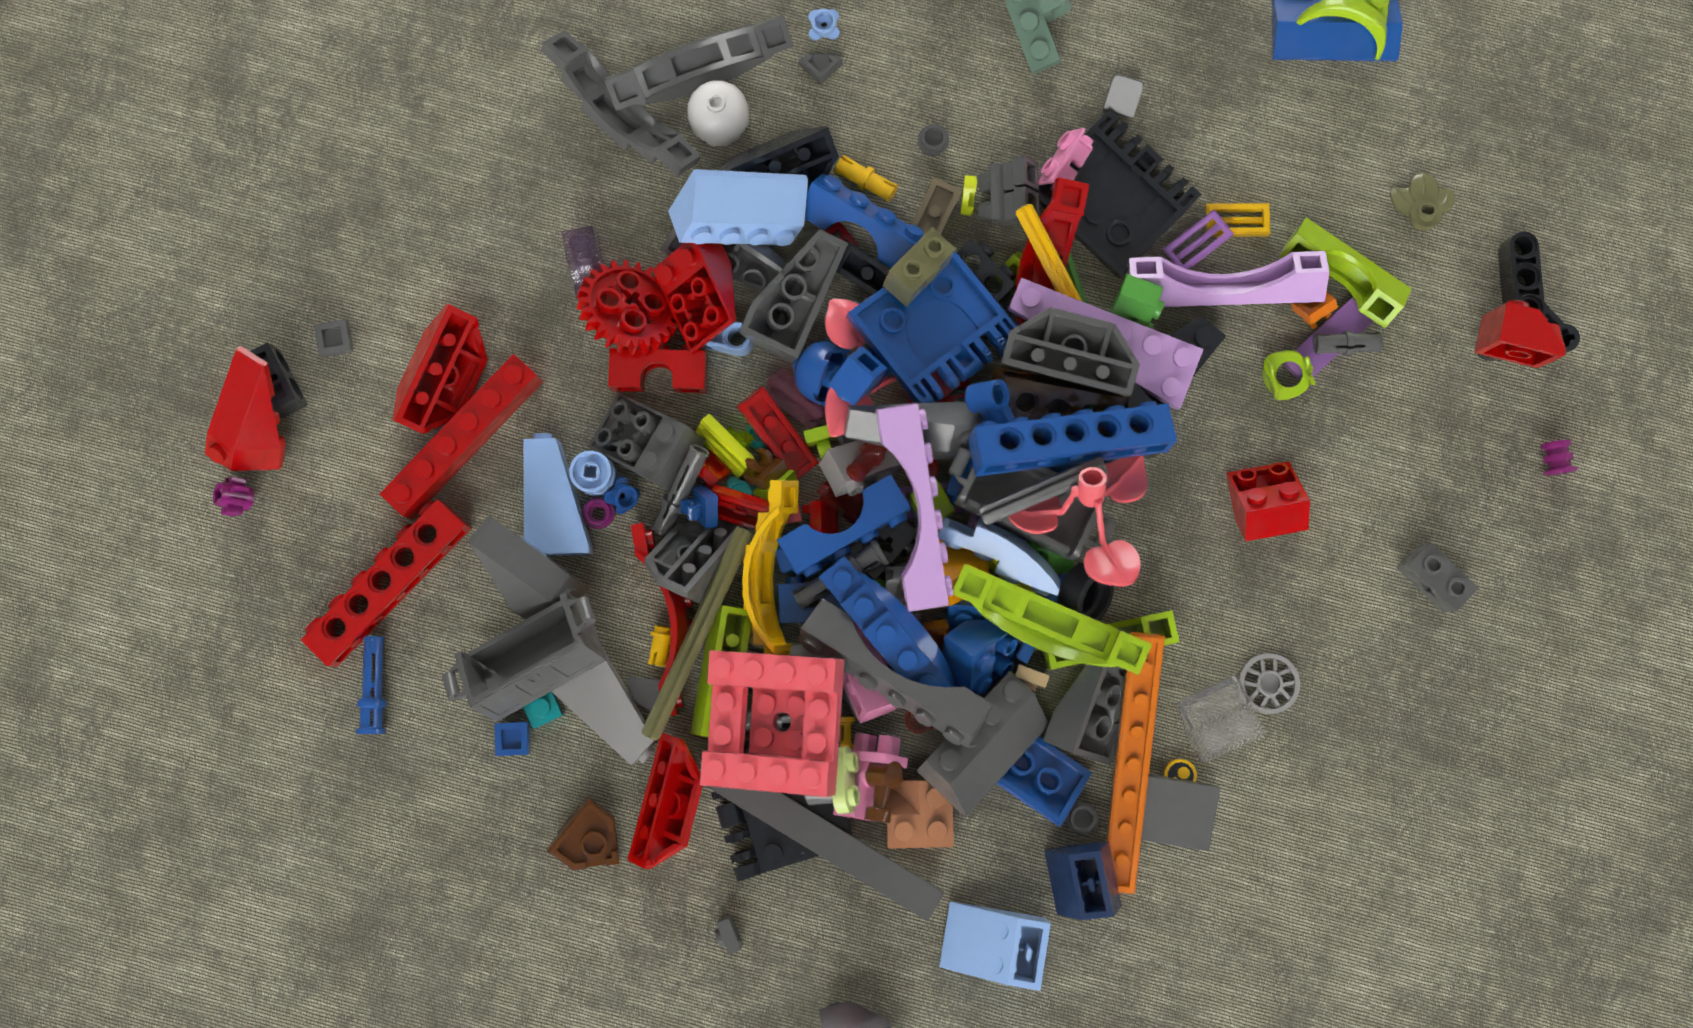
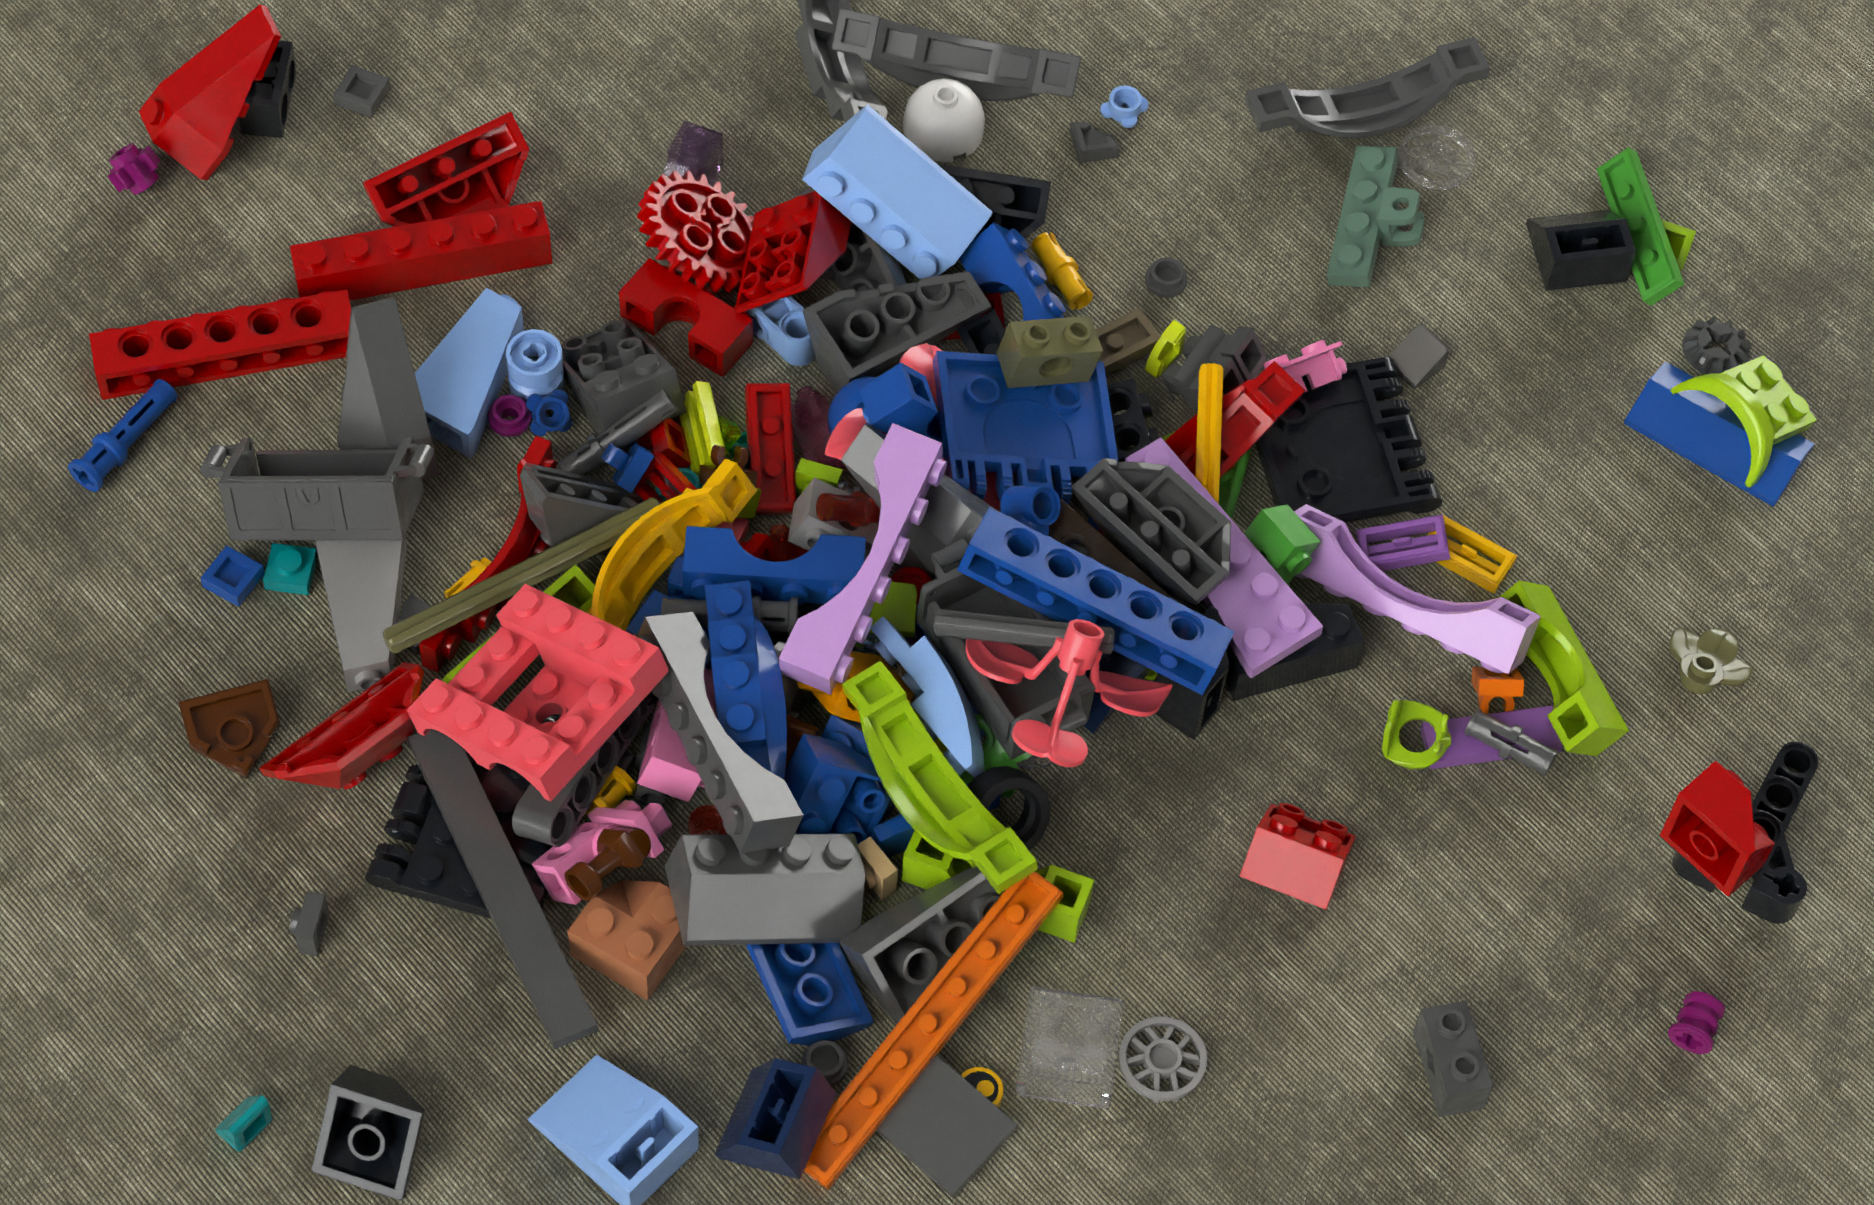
camera: 25 degrees right, 25 degrees down
(847, 791) = (572, 816): yellowish green plate -> none

